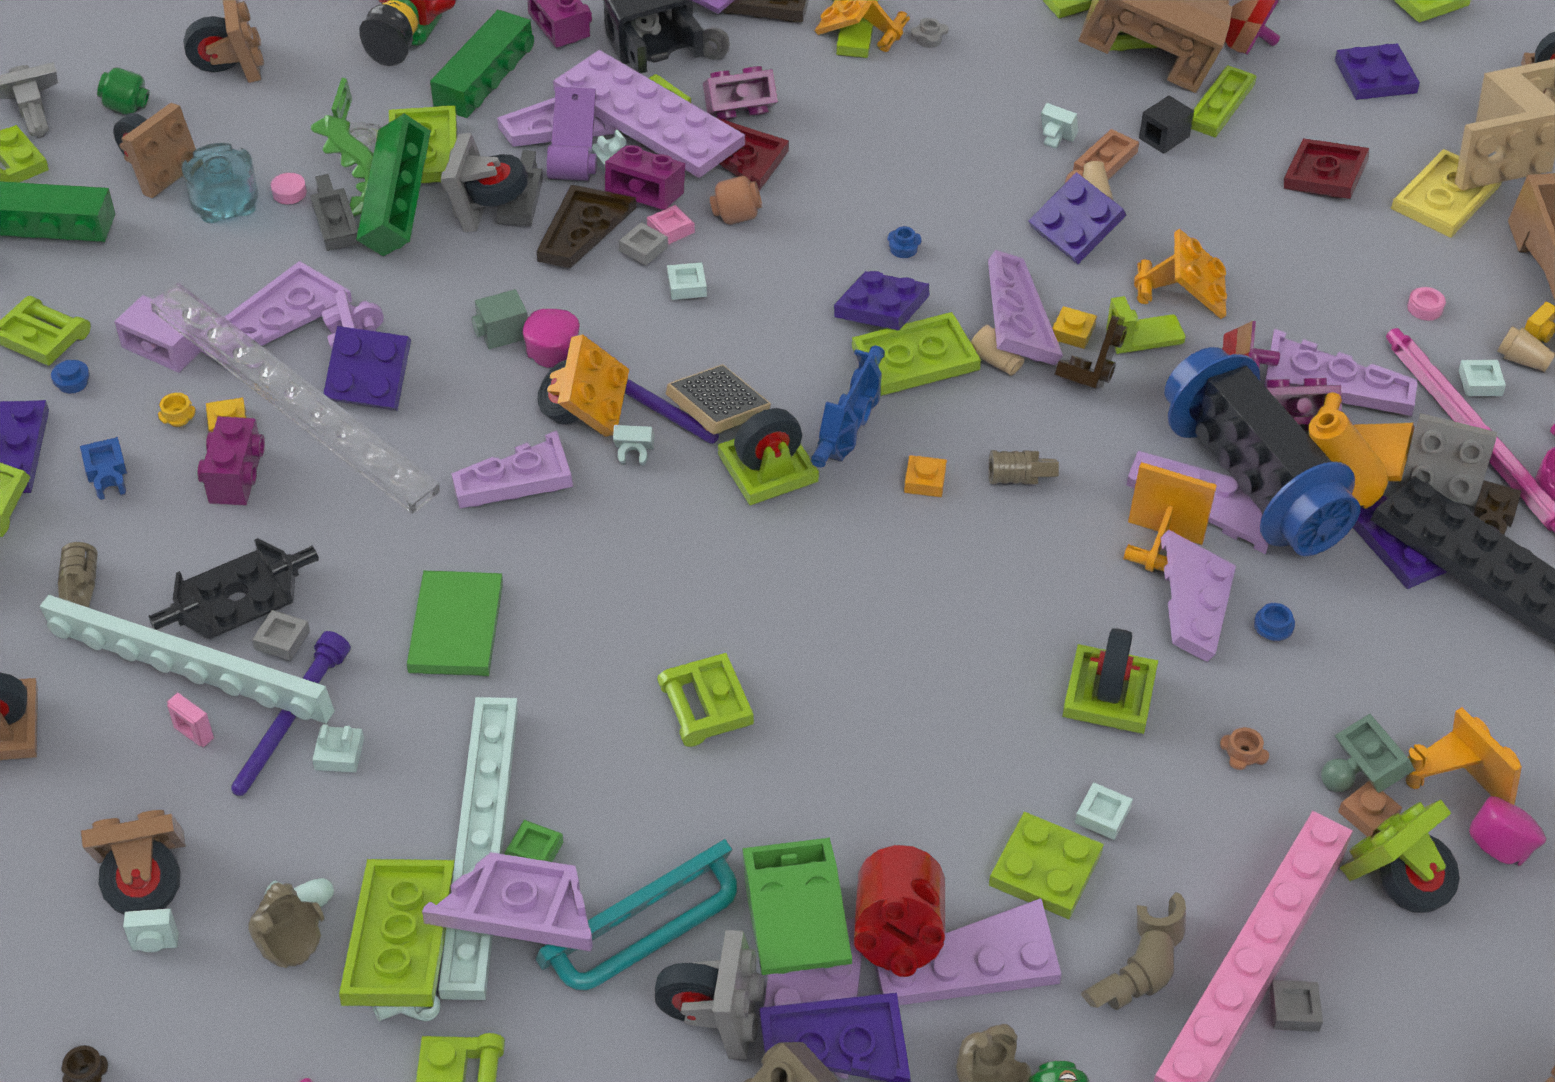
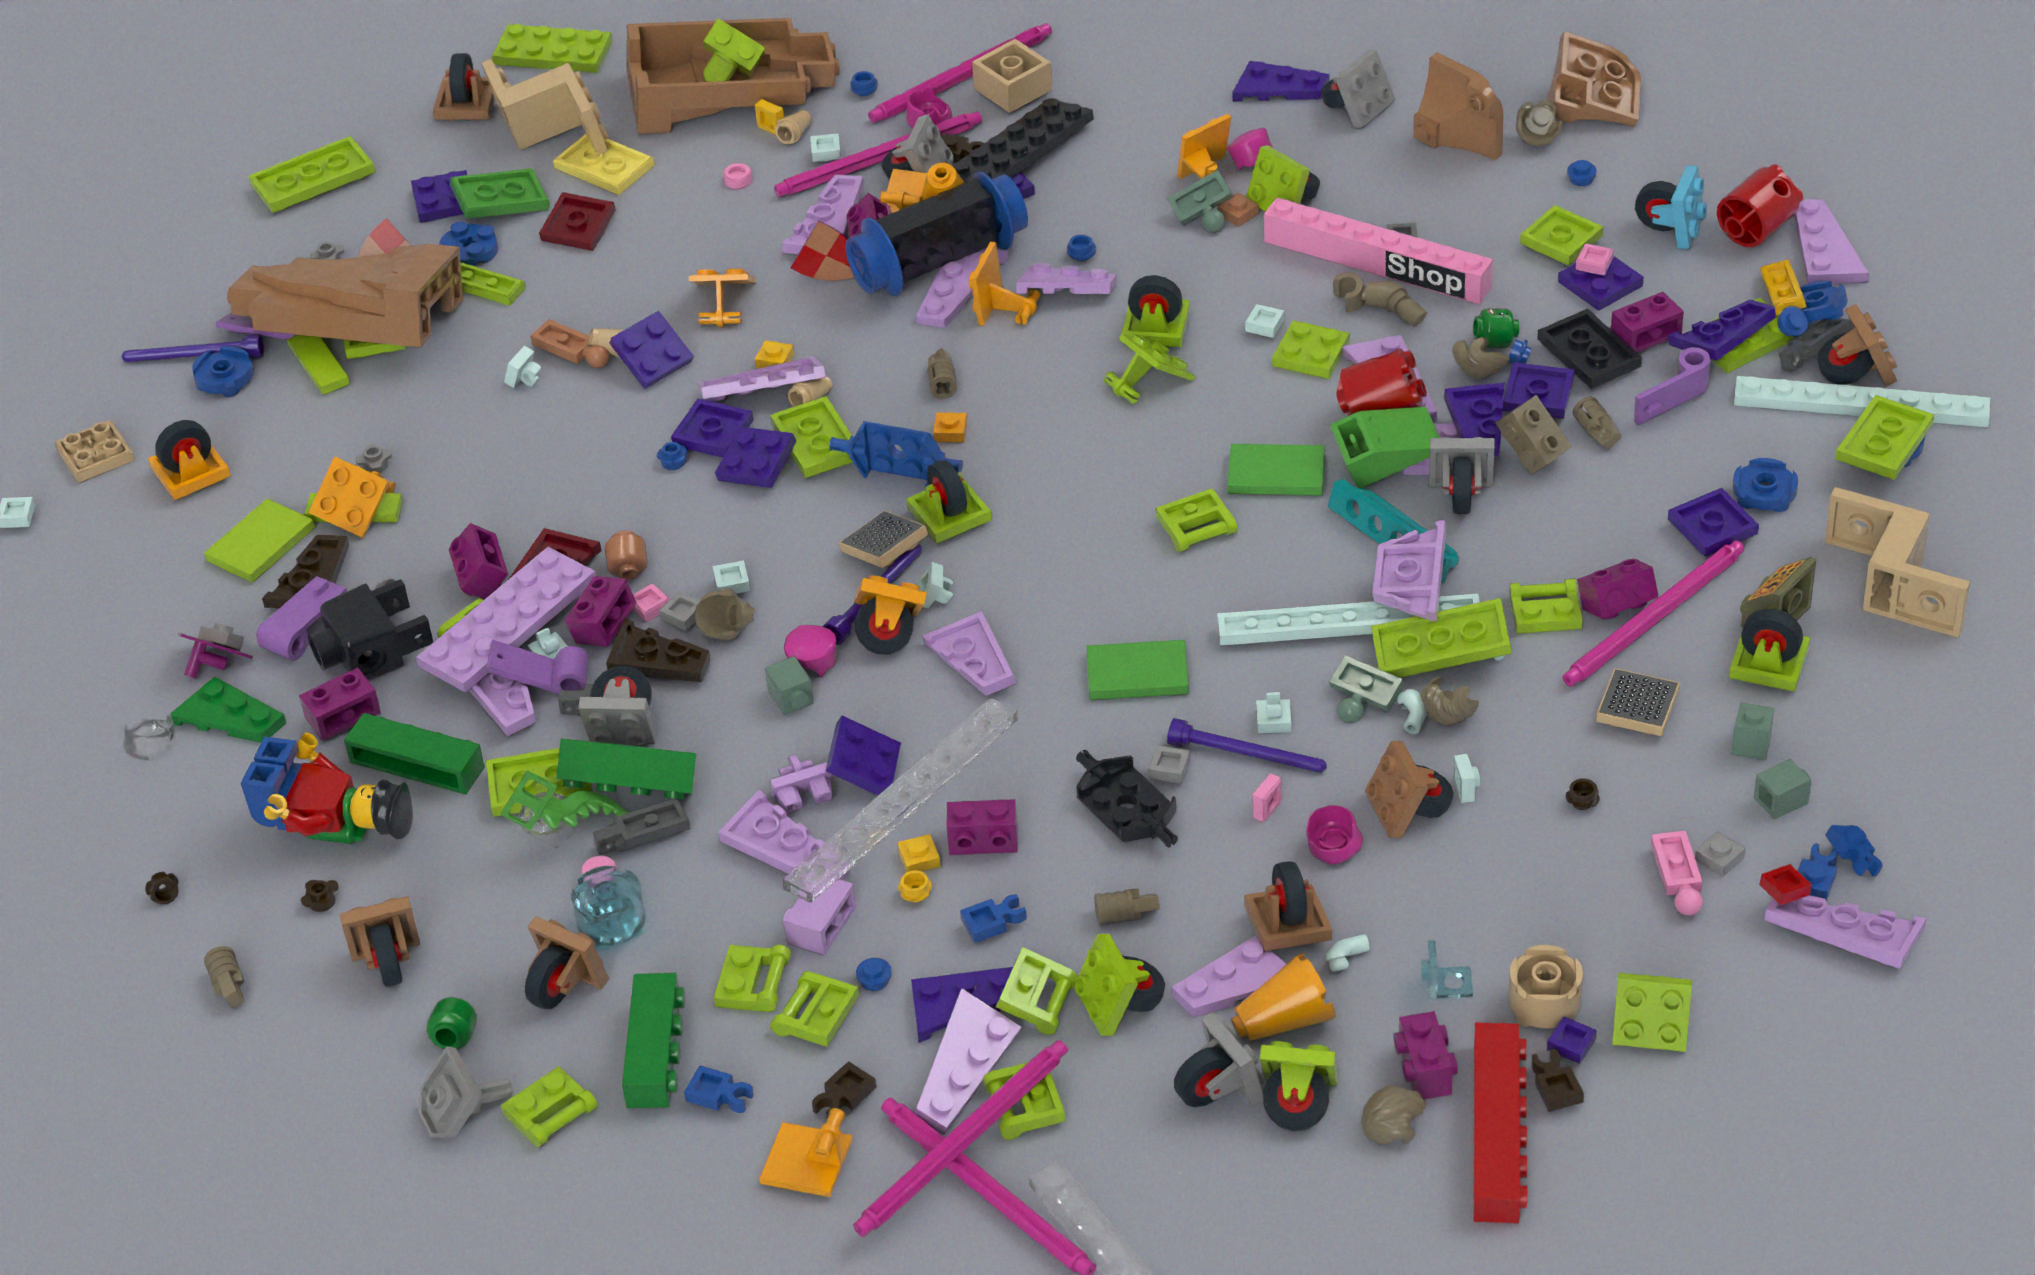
camera: 90 degrees left, 5 degrees down
(104, 287) = (741, 975): none -> lime plate
(108, 781) = (1333, 834): none -> dark pink hair
(188, 659) = (1209, 812): light aqua plate -> none
(324, 17) = (319, 895): none -> dark brown plate
(349, 846) = (1363, 685): none -> sand green plate
(535, 842) = (1343, 593): bright green tile -> none
(621, 270) = (723, 614): none -> dark tan hair
(795, 792) = (1276, 469): none -> bright green tile
(946, 267) = (711, 427): none -> dark purple plate
(1013, 670) = (1144, 358): none -> lime plate
(1080, 369) = (830, 323): dark brown bracket -> none
(1145, 332) = (784, 315): lime bracket -> none
(1166, 124) = (522, 306): black brick -> none
(1245, 739) = (1197, 261): nougat plate -> none
(1299, 82) = (478, 238): none -> blue plate
(1372, 105) = (499, 193): none -> bright green tile

